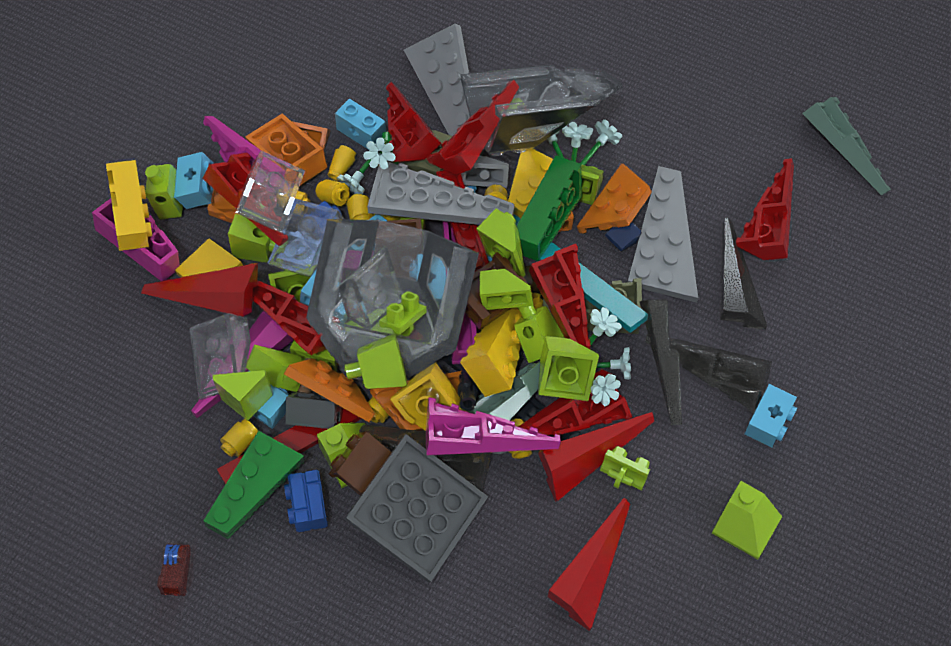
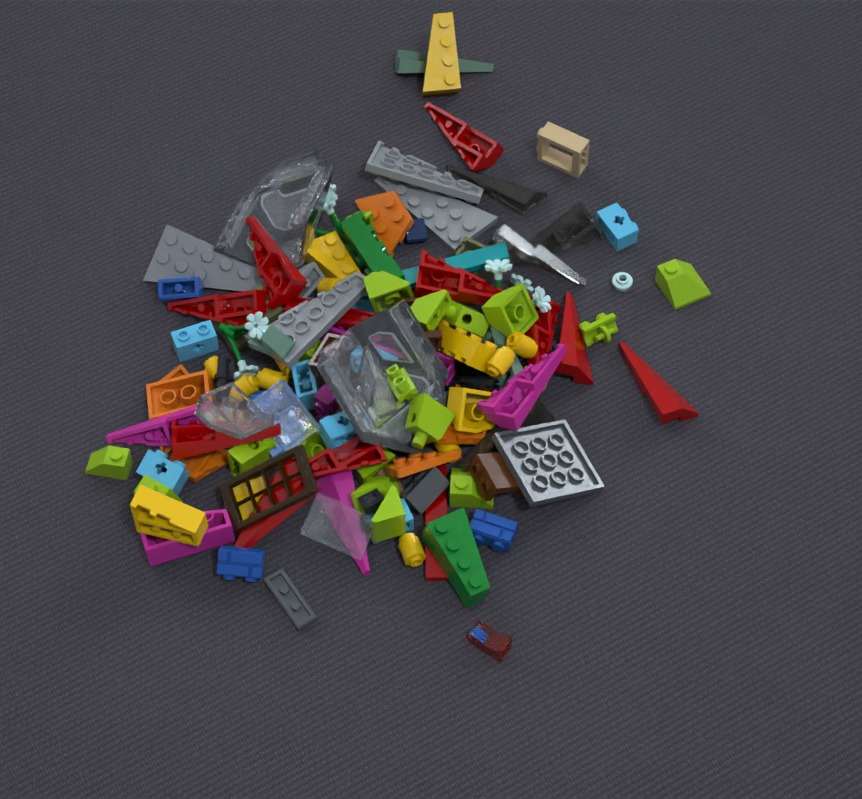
camera: 55 degrees left, 5 degrees down
(125, 364) = (290, 599): none -> dark grey tile
(135, 298) = (241, 562): none -> blue brick
(185, 137) = (110, 462): none -> lime slope
(239, 286) = (305, 472): none -> dark brown piece
(254, 363) = (371, 501): none -> black tile
(328, 168) = (223, 370): none -> black pin
(380, 182) = (273, 343): none -> sand green slope
(407, 82) = (180, 289): none -> blue brick
(492, 391) = (500, 362): none -> yellow brick
(534, 401) = (522, 345): none -> yellow brick
(692, 189) = (419, 173): none -> light grey wing
(701, 464) = (622, 285): none -> light aqua plate
(824, 309) = (567, 140): none -> tan window
(846, 135) = (442, 60): none -> yellow wedge

